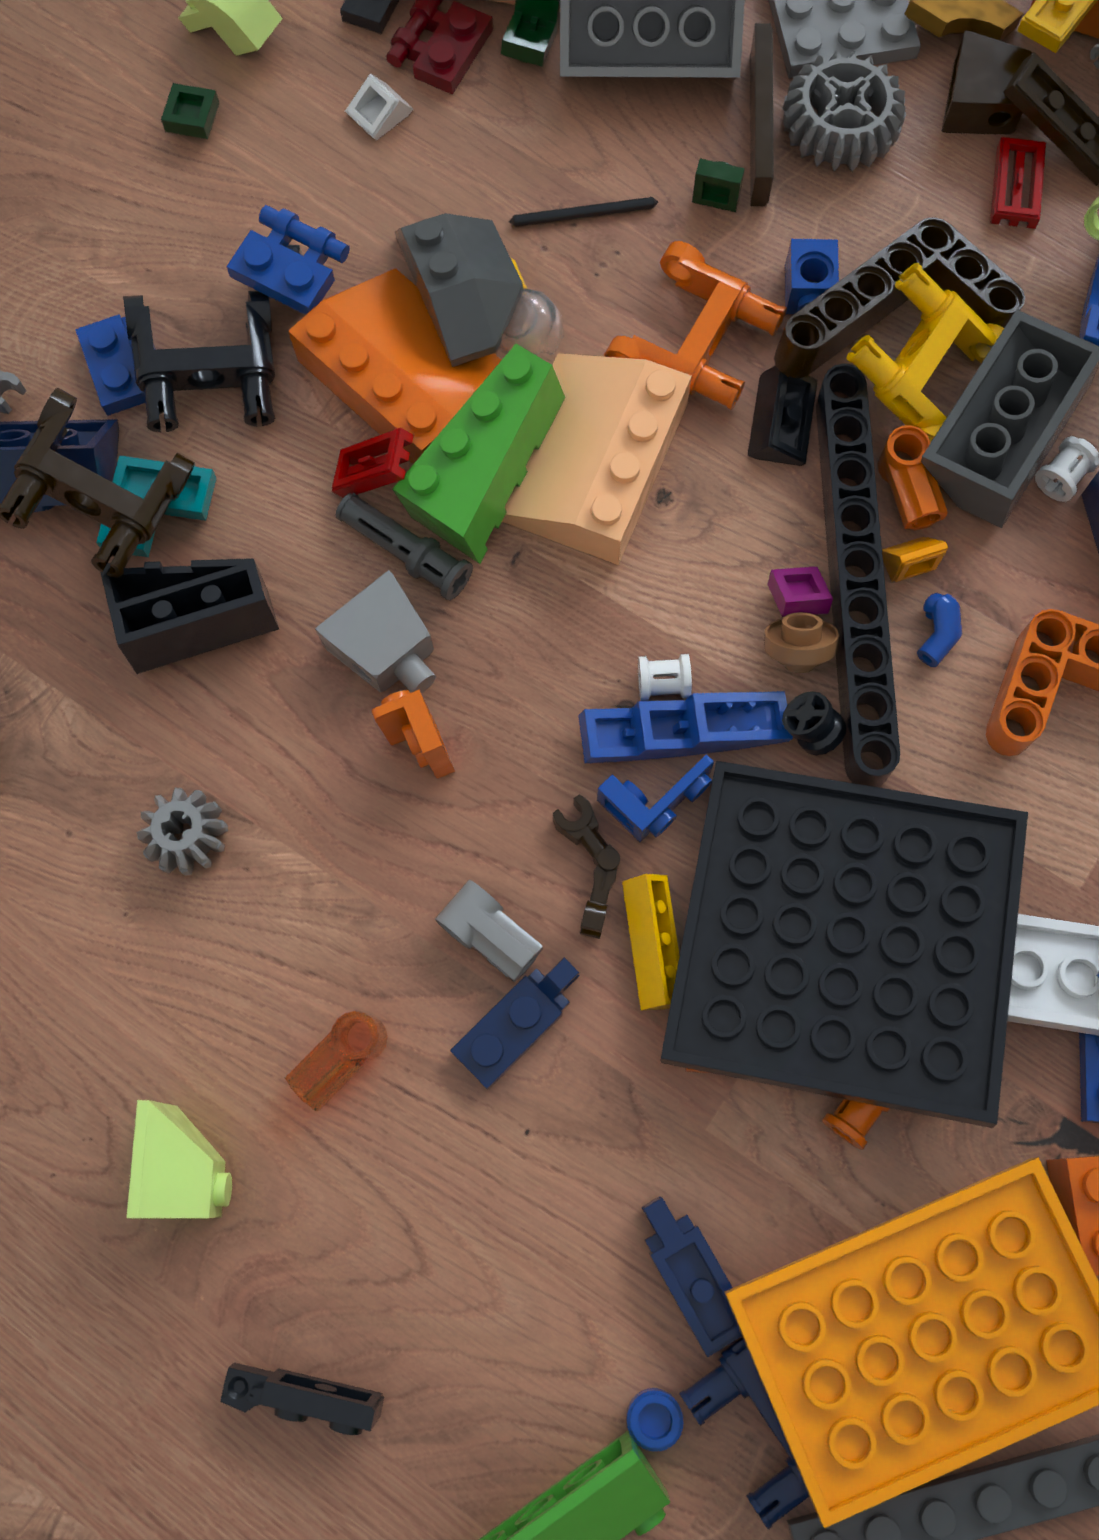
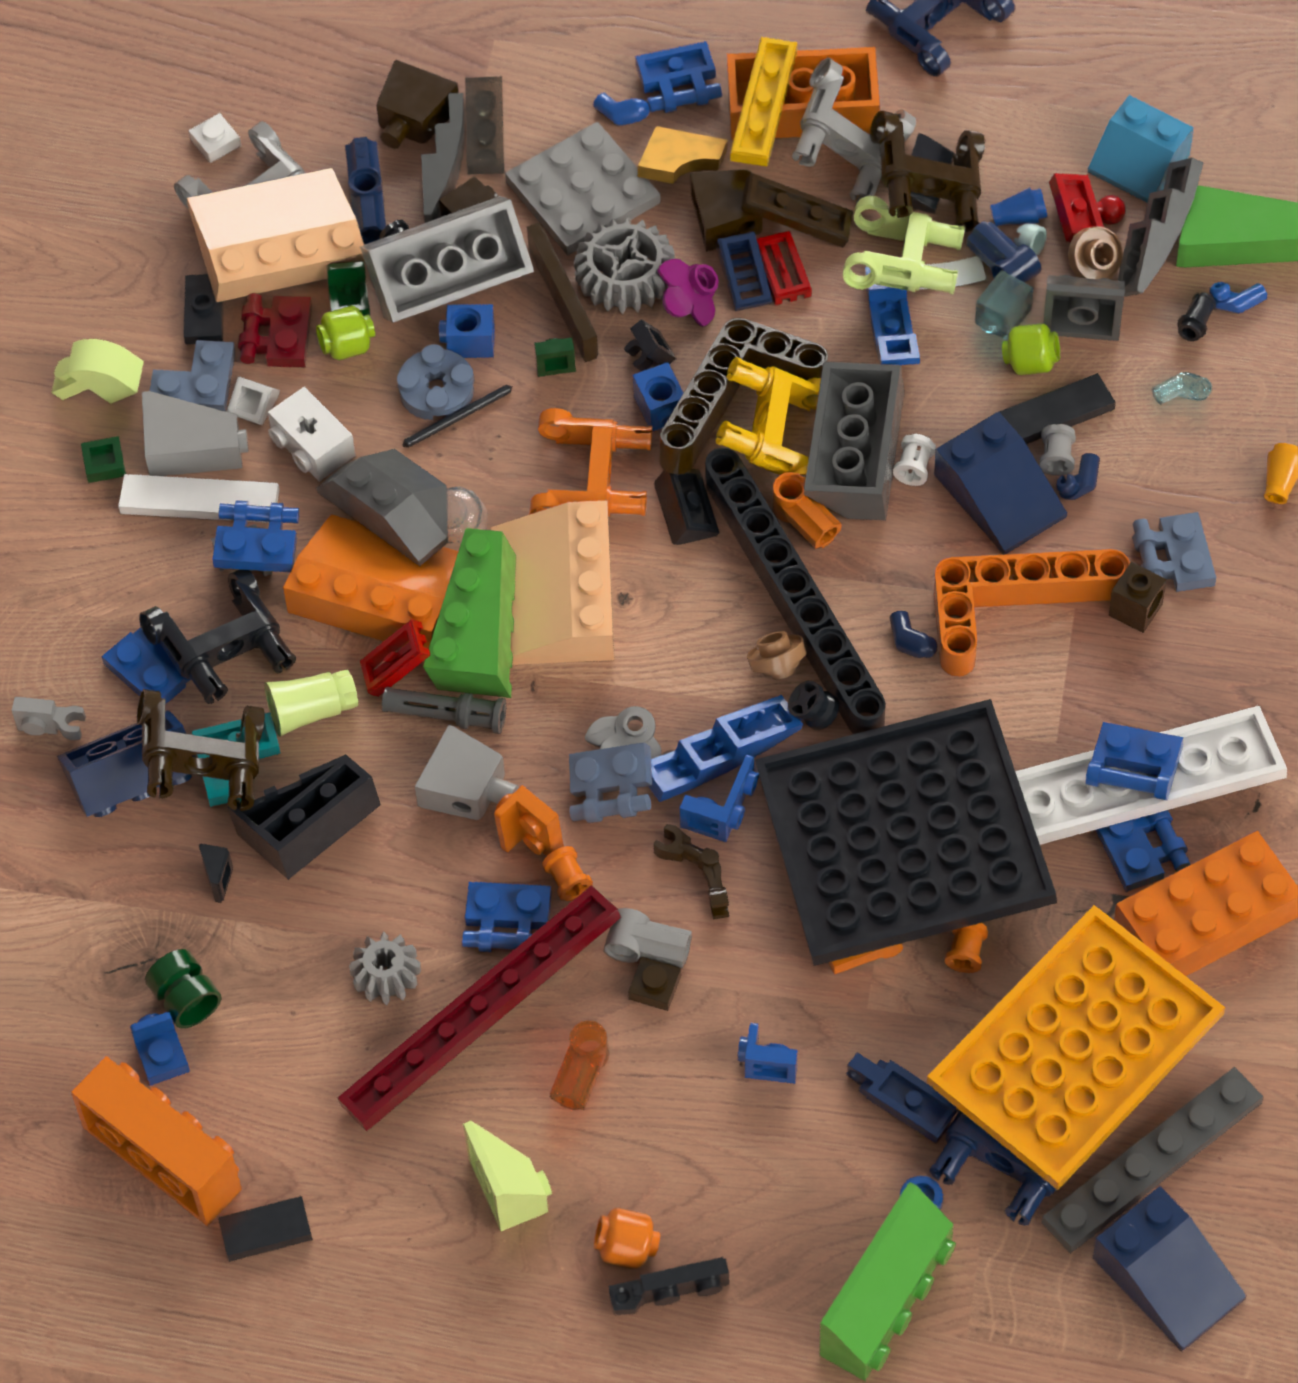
camera: 25 degrees left, 15 degrees down
(62, 631) = (218, 869): none -> black slope
(255, 185) = (190, 496): none -> white tile
(257, 932) = (478, 1008): none -> dark red plate
(259, 472) = (309, 699): none -> yellowish green plant
(281, 1310) = (626, 1238): none -> orange head
(286, 121) = (189, 437): none -> light grey slope
(334, 73) = (208, 380): none -> sand blue plate
(357, 813) = (504, 907): none -> blue plate
(415, 167) = (310, 434): none -> white brick
(439, 805) = (566, 873): none -> orange bush
(474, 986) = (654, 983): none -> dark brown plate
(506, 69) = (345, 333): none -> lime head
(515, 1023) = (697, 994): dark blue hinge -> none
(544, 702) = (608, 771): none -> sand blue plate
(559, 1157) = (767, 1062): none -> blue bracket
(572, 143) = (431, 365): none -> sand blue plate
(574, 676) = (614, 730): none -> light grey plate
(639, 119) = (480, 324): none -> blue brick
(652, 687) = (688, 719): white bush -> none
(652, 938) = (768, 896): yellow piece -> none
(800, 591) = (759, 620): magenta plate -> none
(830, 213) = (652, 345): none -> black tile
(901, 166) = (689, 290): none -> magenta plate
(913, 557) = (832, 566): light orange slope -> none
(947, 624) = (879, 605): blue arm -> none
(963, 687) = (910, 640): none -> dark blue arm
(978, 136) = (736, 245): none -> dark blue slope

